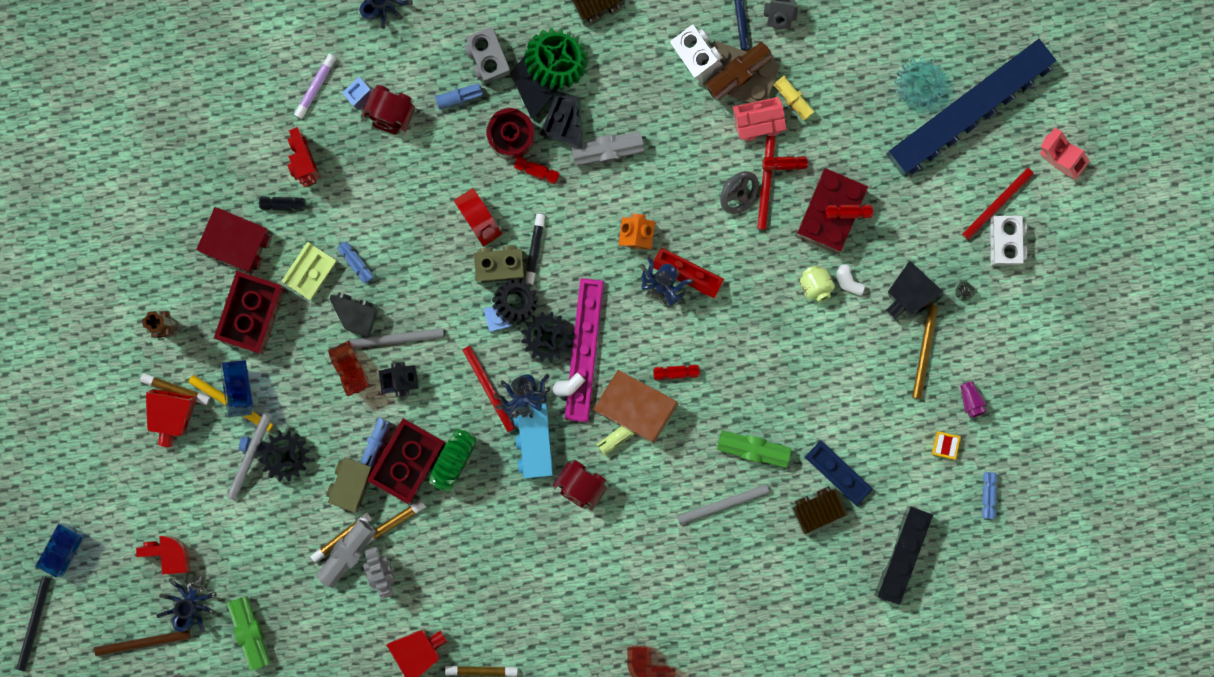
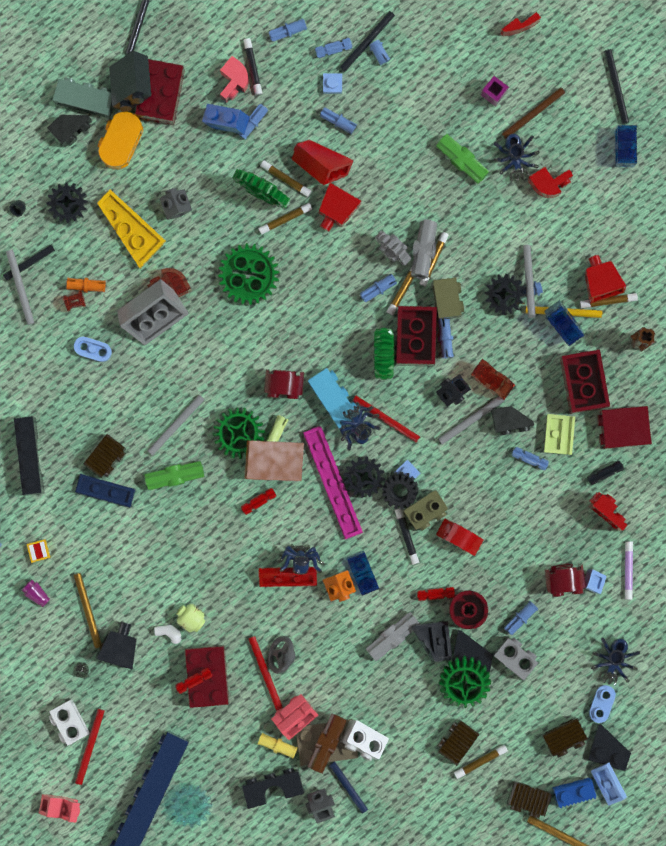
camera: 155 degrees right, 0 degrees up
(419, 537) = (378, 288): none -> medium blue axle
(541, 646) = (245, 291): none -> green gear
(568, 387) = (329, 449): white arm -> none
(604, 234) = (362, 573): none -> clear blue slope
(668, 475) = (224, 424): none -> green gear
(685, 643) = (152, 312): none -> light grey slope
(771, 637) = (93, 349): none -> light blue plate
(784, 163) = (259, 694): red axle -> none
(802, 54) = (255, 789): none -> black arch

